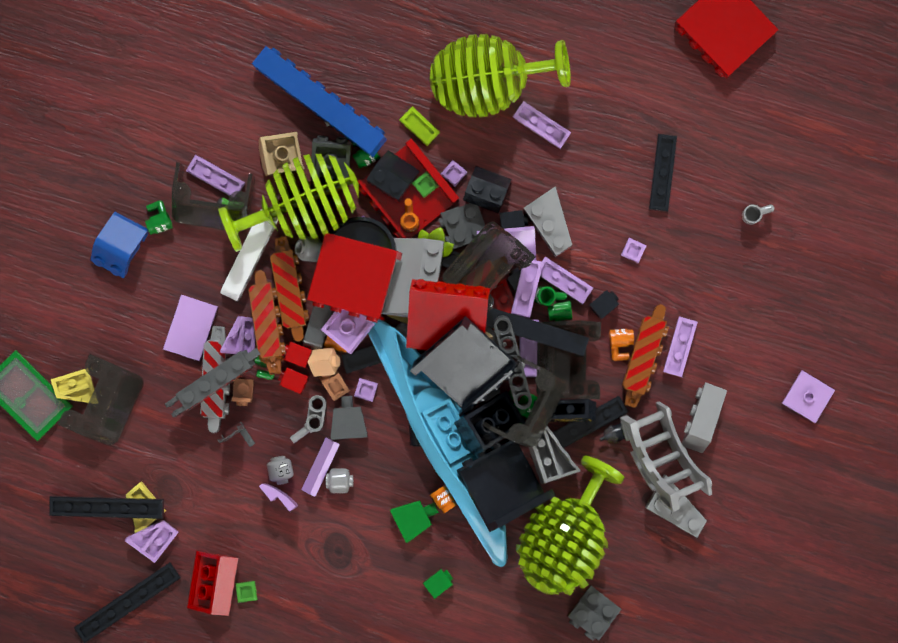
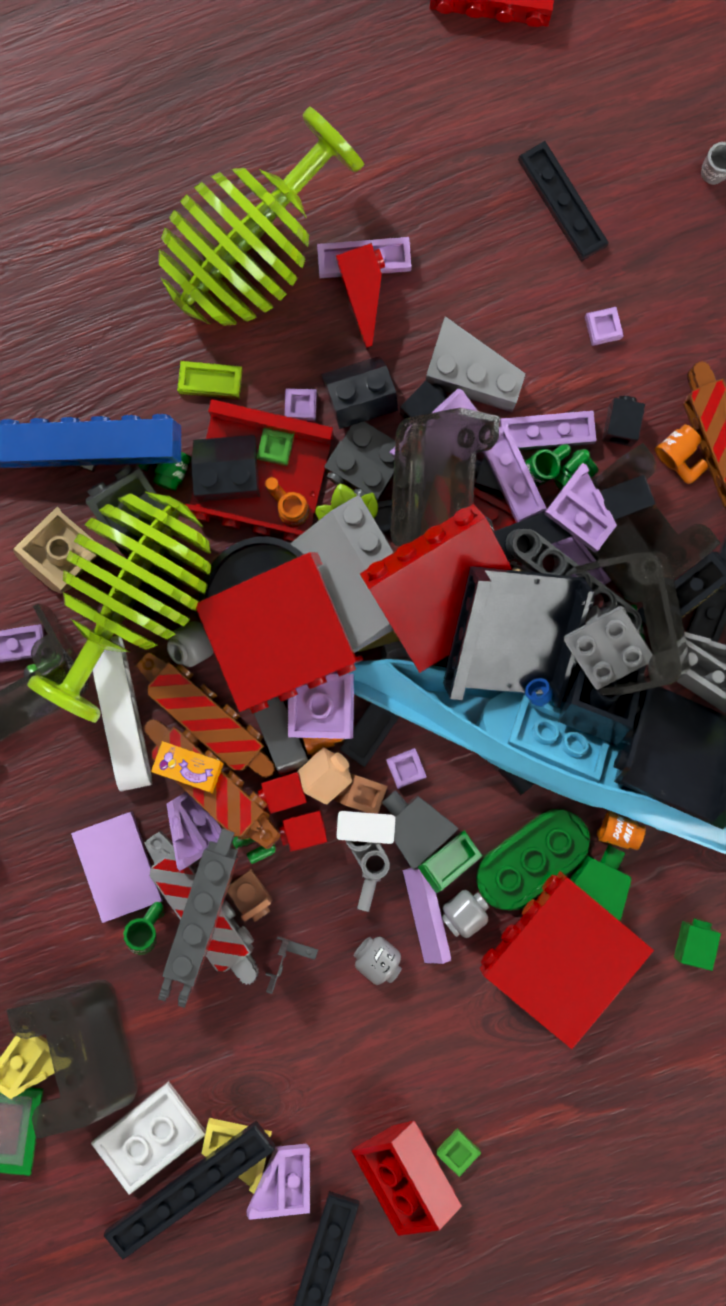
camera: 40 degrees left, 0 degrees up
(105, 468) = (149, 1137): none -> white tile
(178, 368) = (140, 932): none -> green piece
(262, 306) = (187, 767): none -> light orange tile
(274, 493) = (394, 997): lavender slope -> none
(324, 401) = (366, 827): none -> white sticker
(351, 450) = (450, 861): none -> tile
(369, 538) = (565, 959): none -> red panel
(392, 481) = (524, 861): none -> green tile
(456, 397) = (536, 685): none -> blue hinge
(501, 403) = (608, 646): none -> light grey bracket
(529, 137) = (362, 282): none -> red slope
(543, 331) = (582, 510): none -> lavender wing

